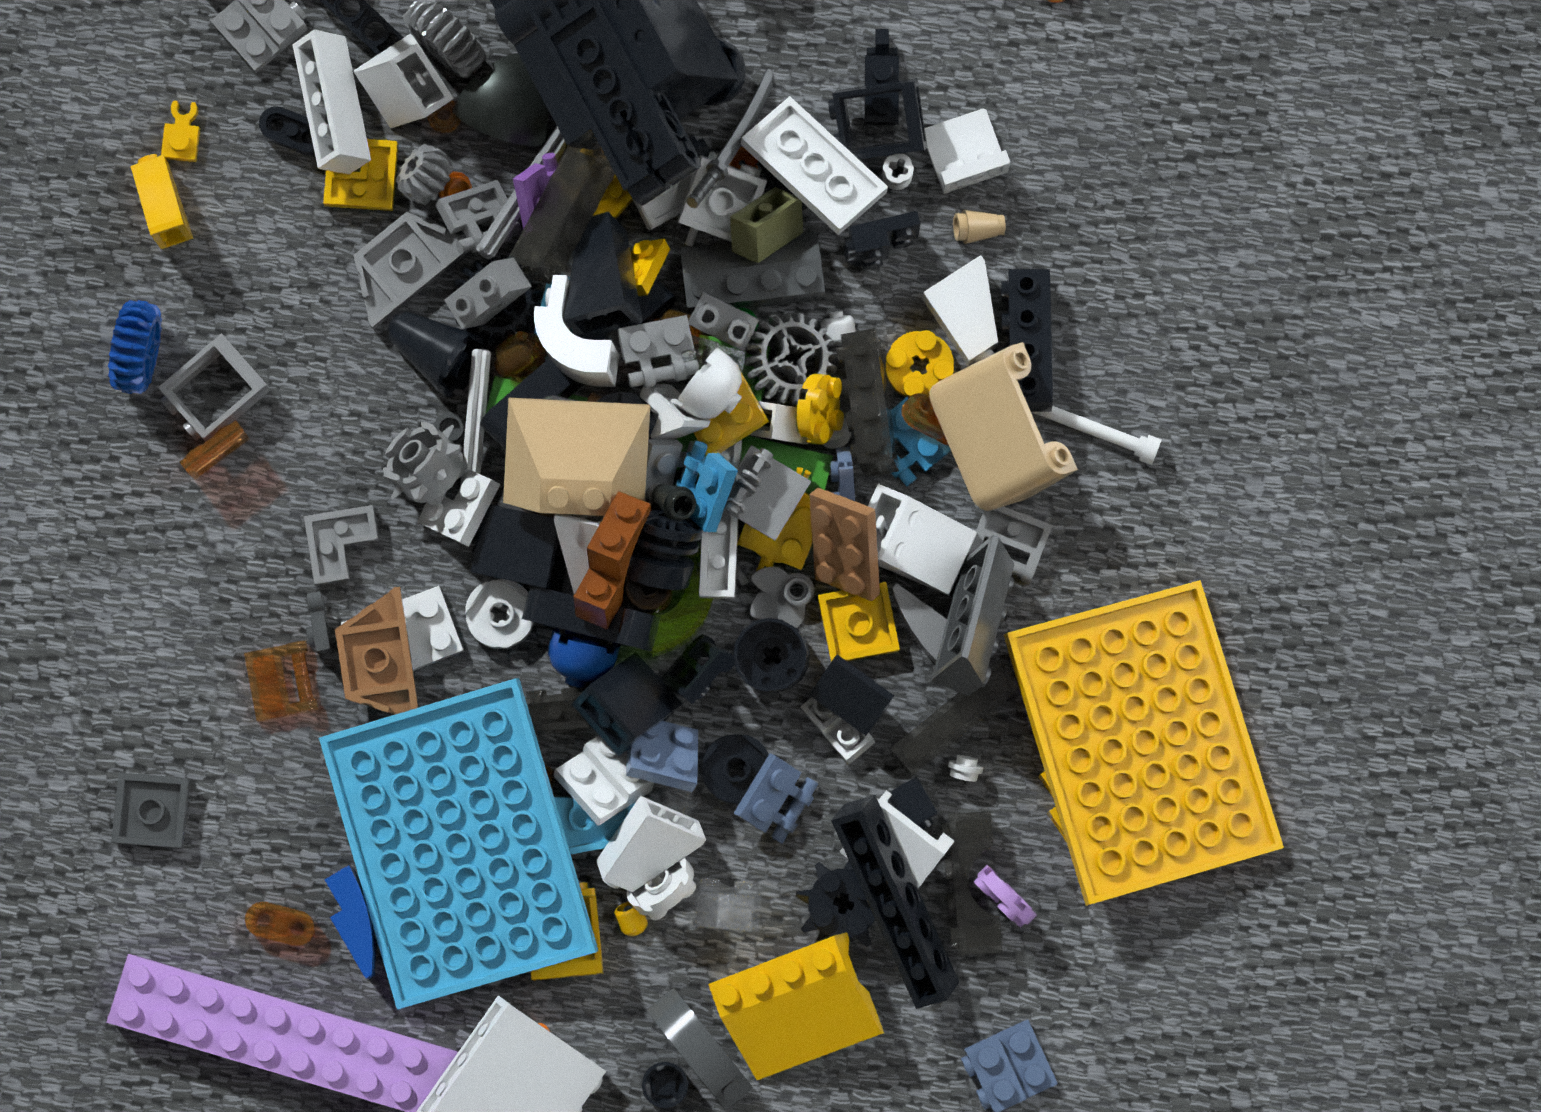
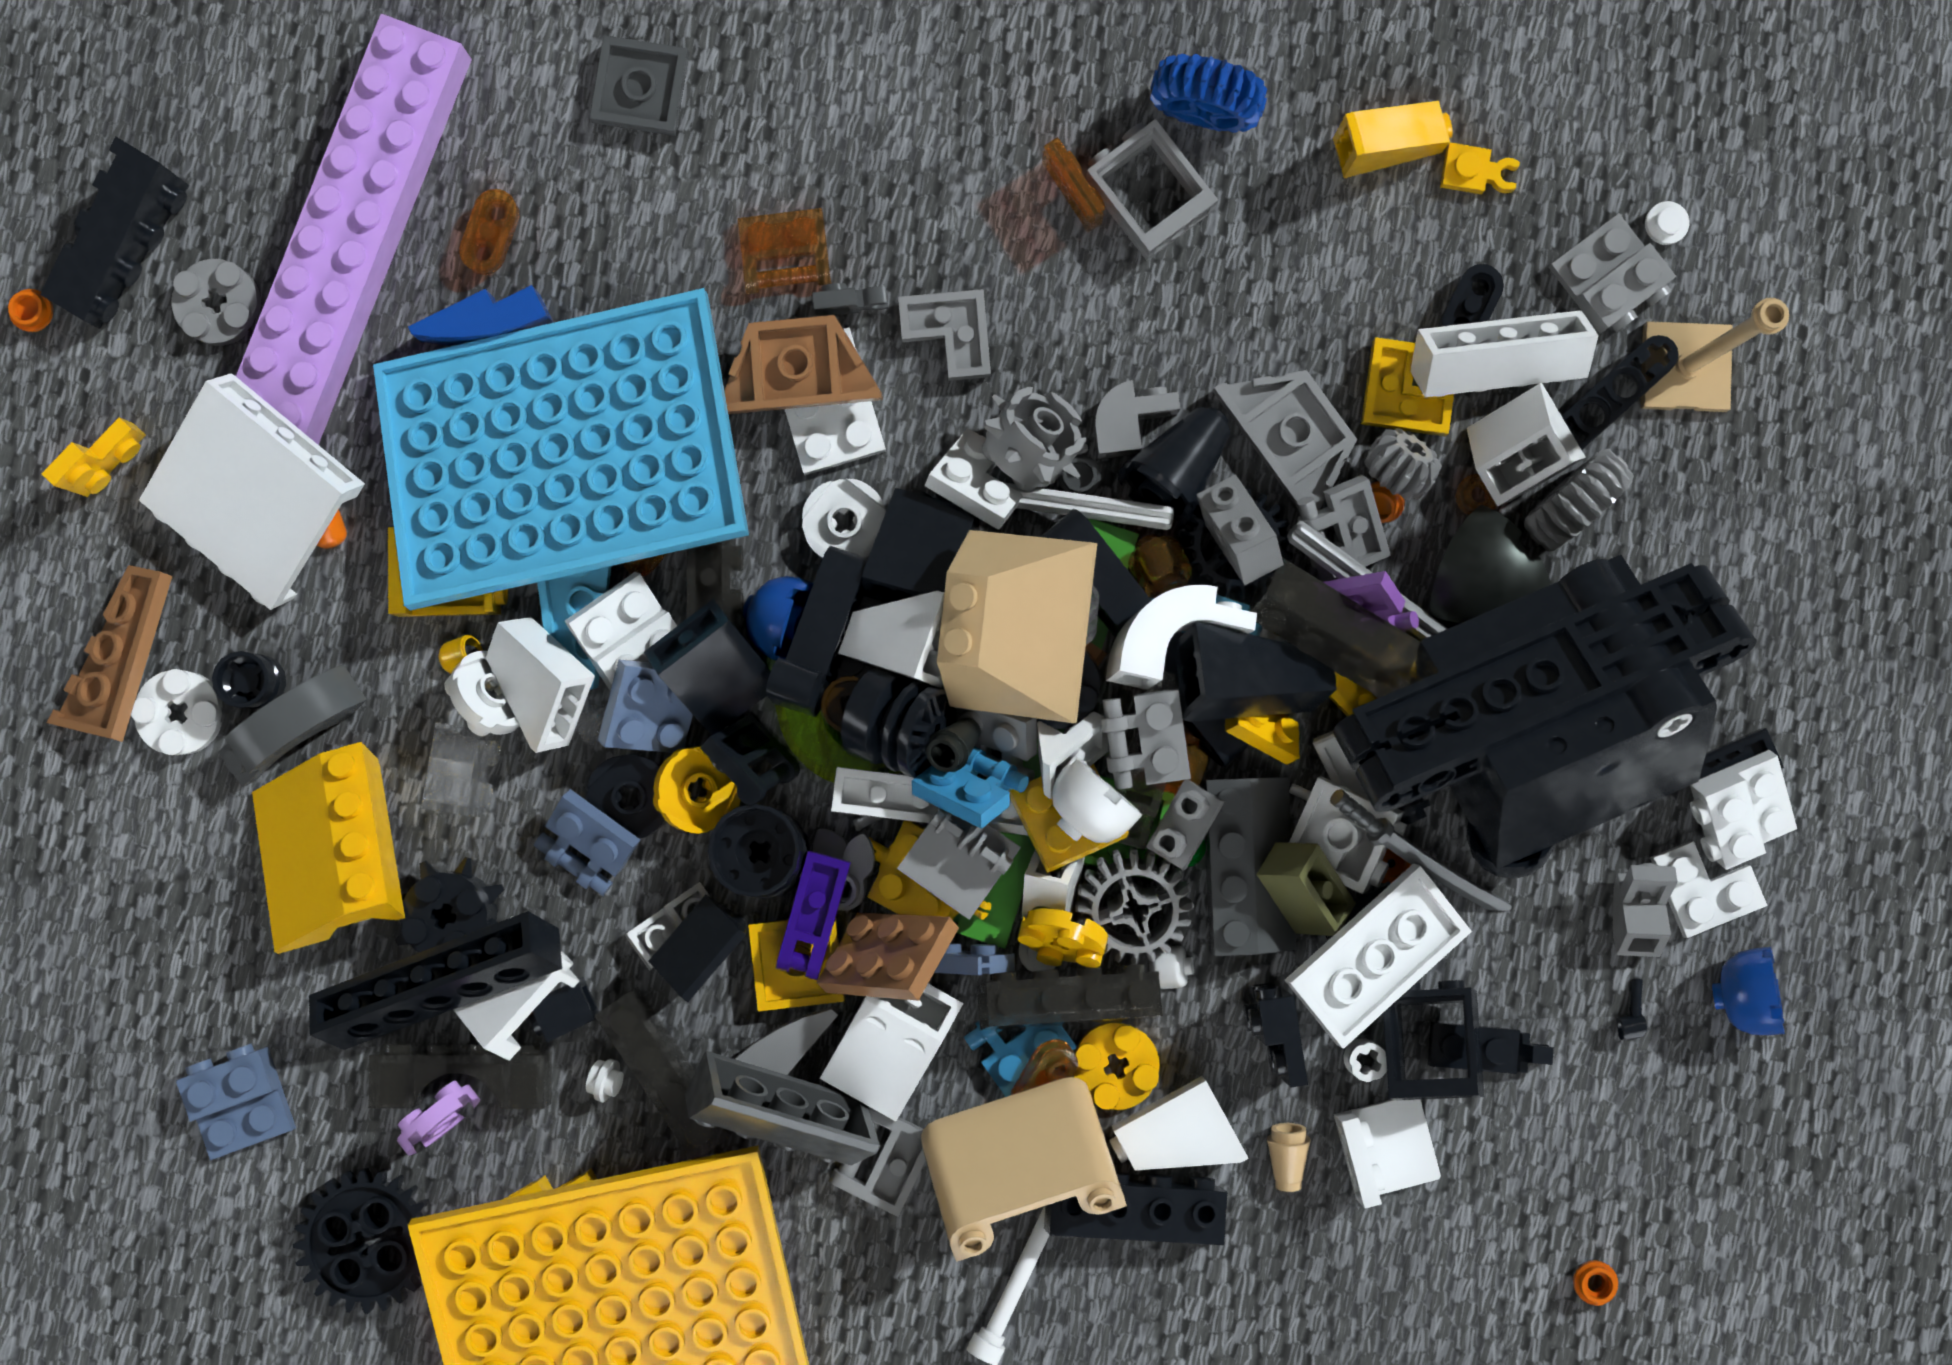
camera: 100 degrees right, 5 degrees up
(403, 401) = (1118, 415): none -> light grey brick
(608, 559) = (883, 658): dark orange arch -> none
(732, 729) = (673, 797): none -> yellow plate
(817, 608) = (813, 913): none -> dark purple plate
(1079, 961) = (354, 1204): none -> black gear

